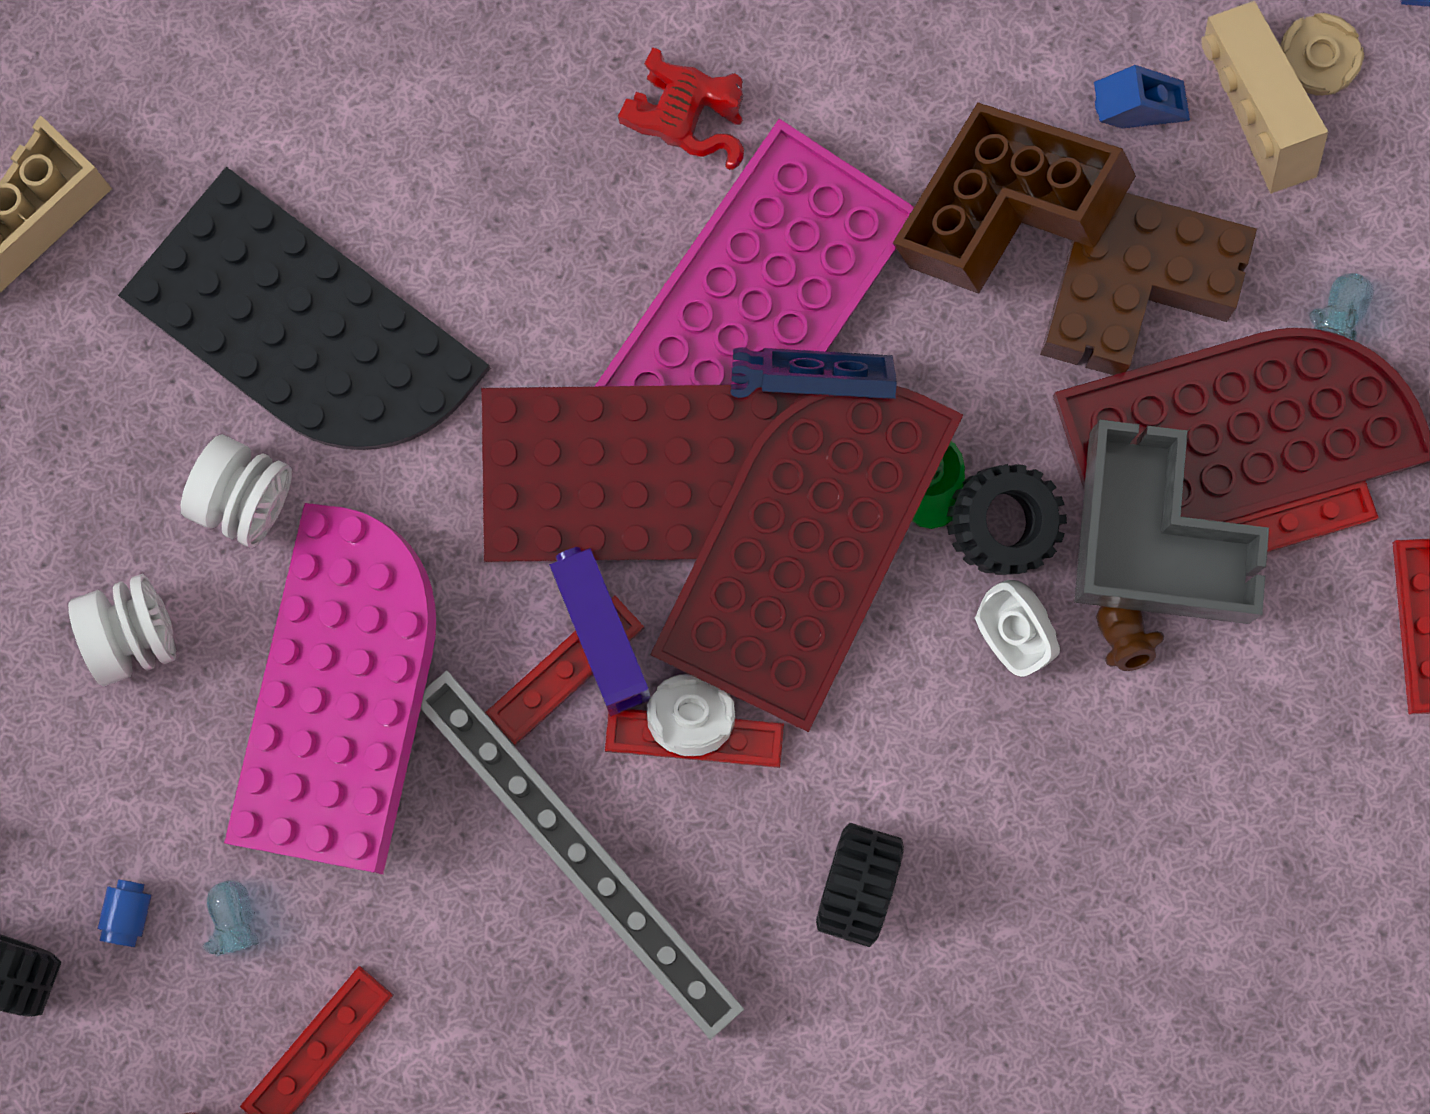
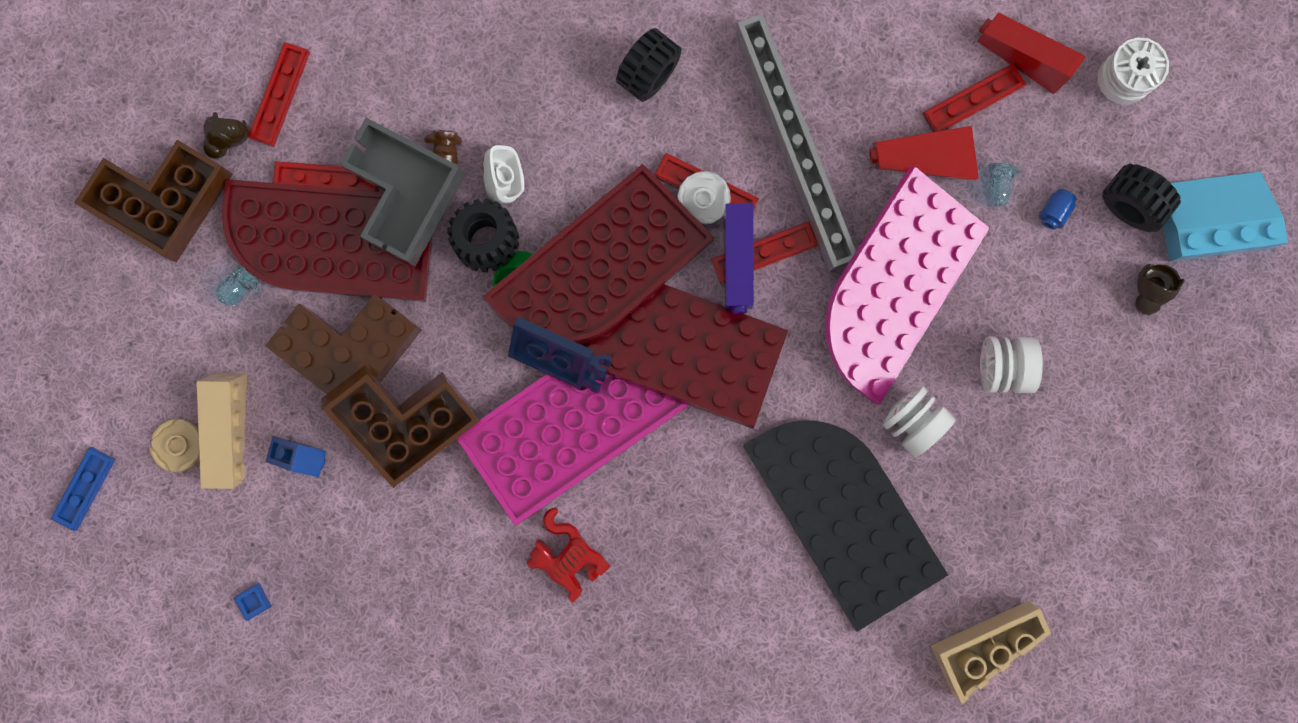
camera: 160 degrees left, 5 degrees up
(361, 921) = (935, 154): none -> red slope

